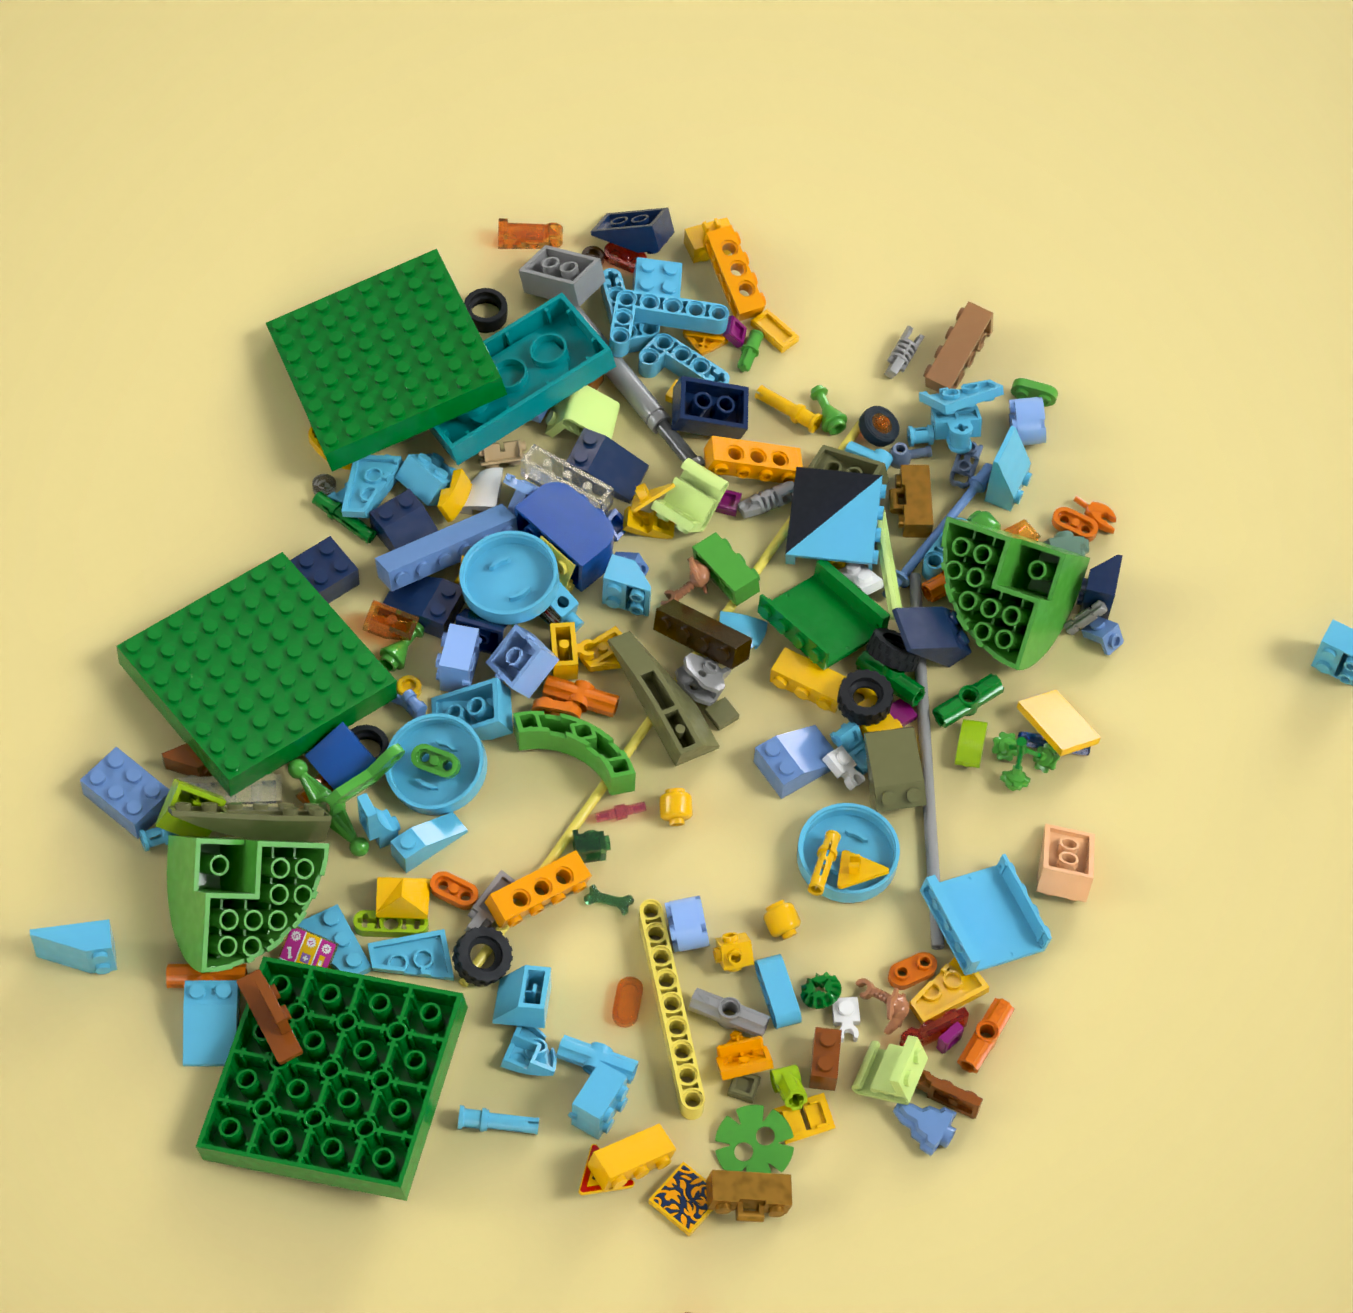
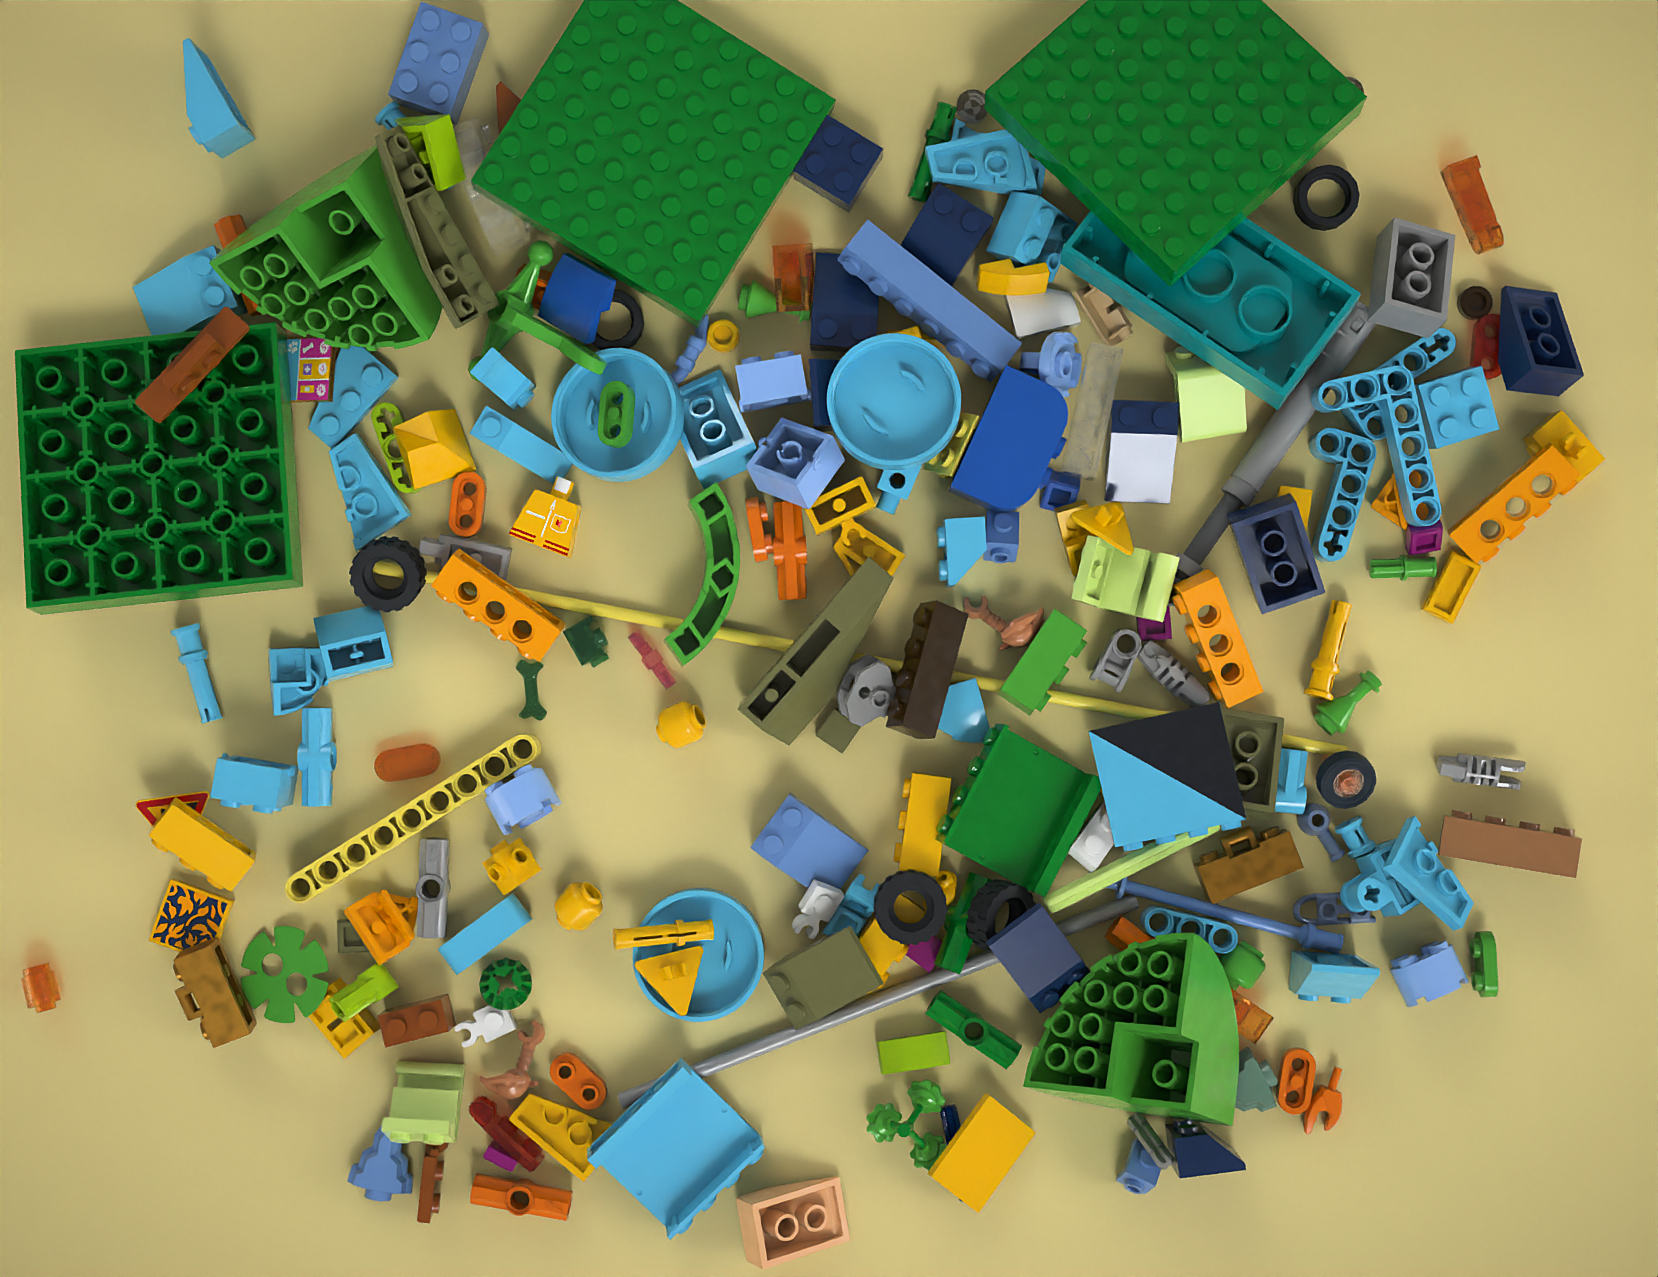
camera: 70 degrees right, 30 degrees up
(491, 839) = (550, 519): none -> yellow torso
(745, 529) = (1116, 661): none -> light grey piece

